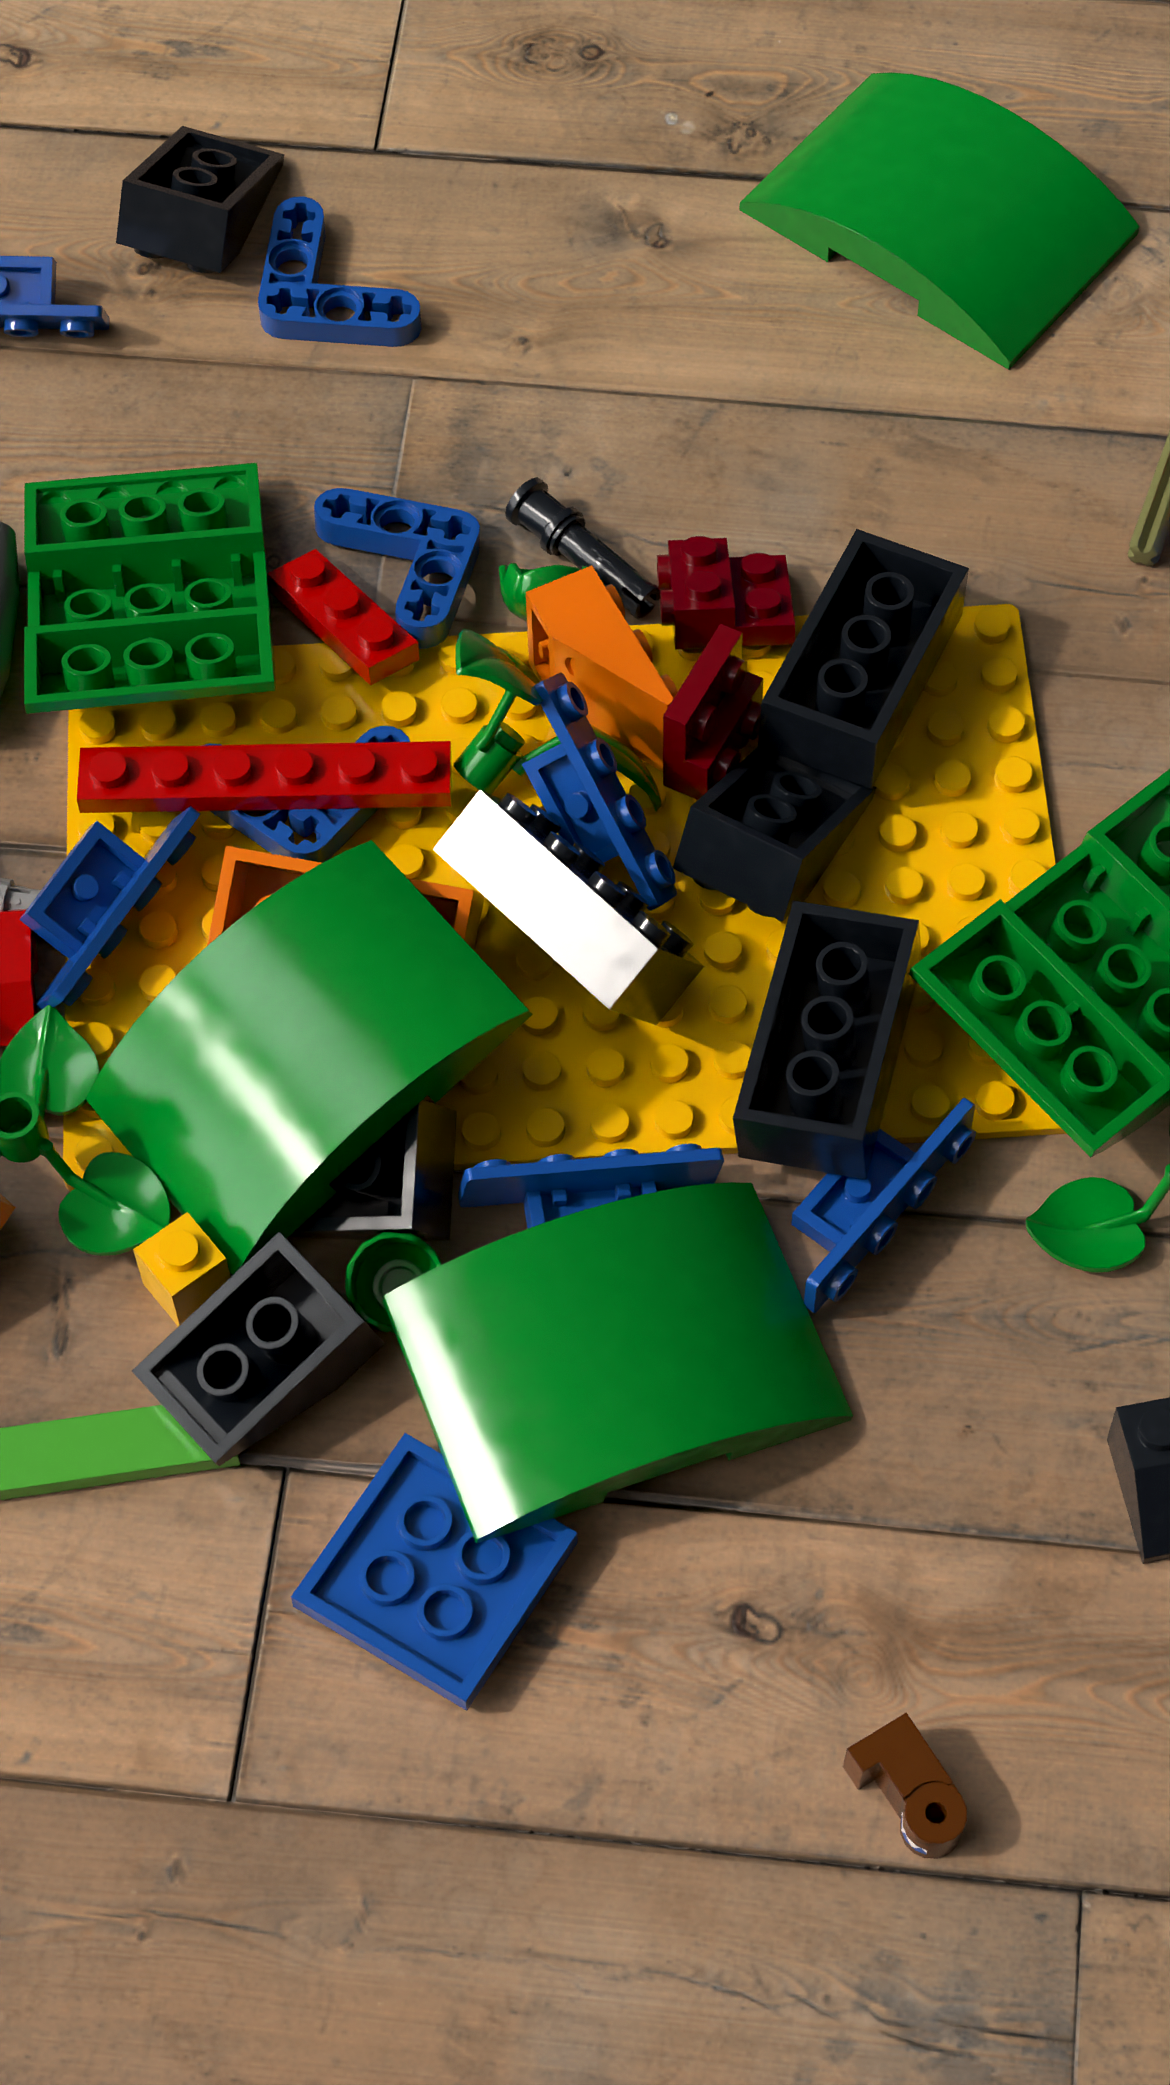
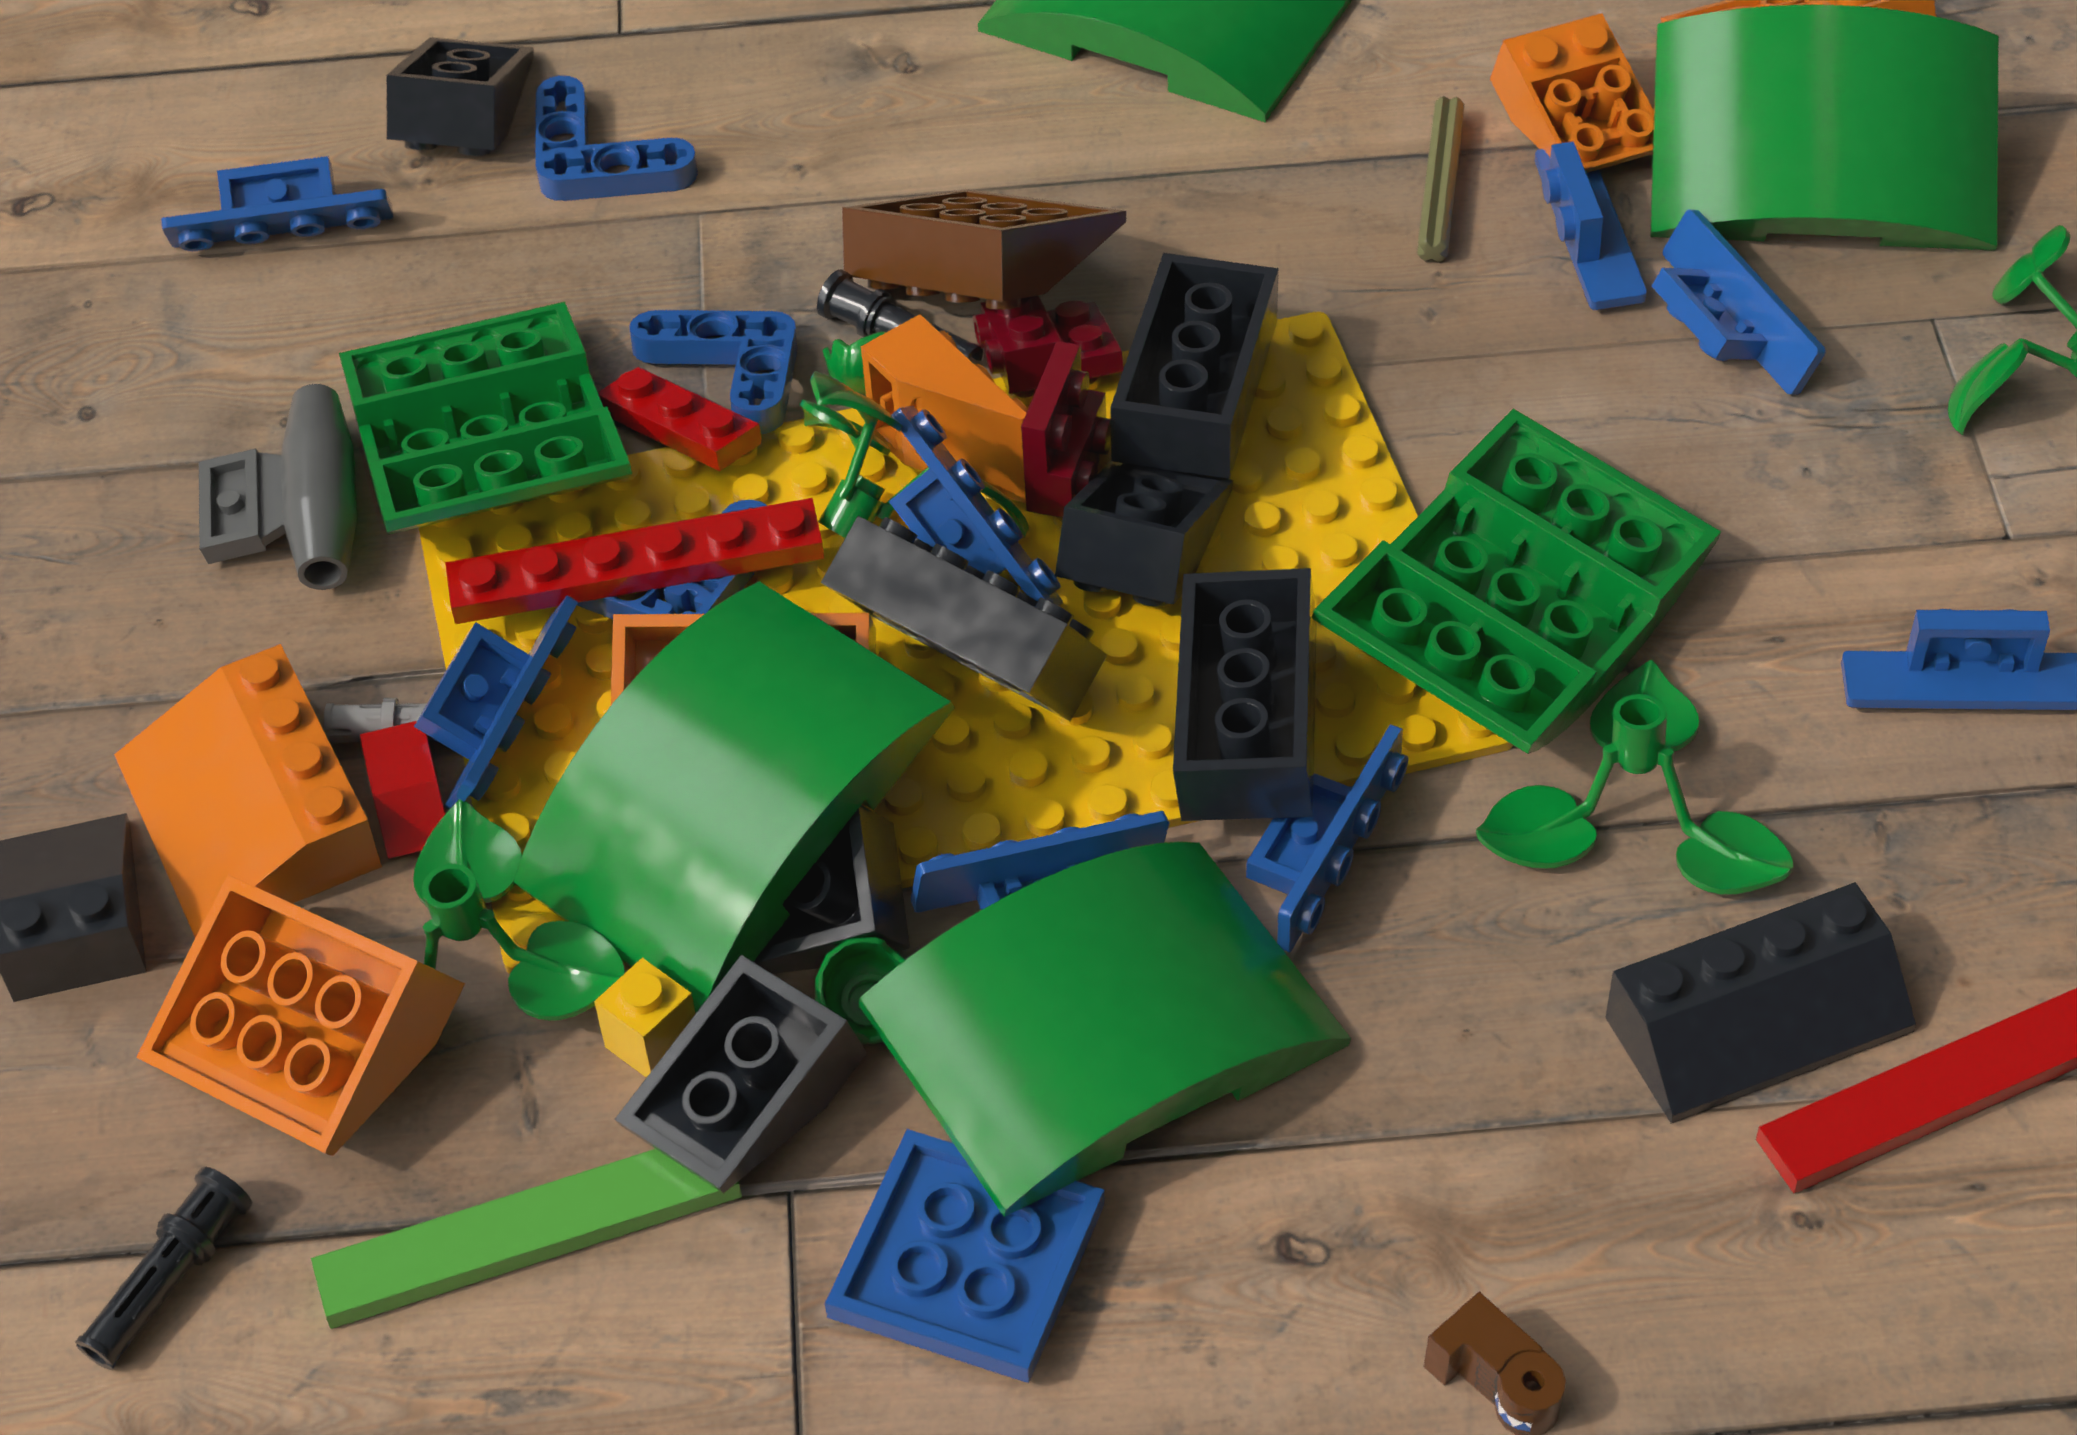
camera: 10 degrees left, 10 degrees down
(675, 474) = (972, 244): none -> reddish brown slope

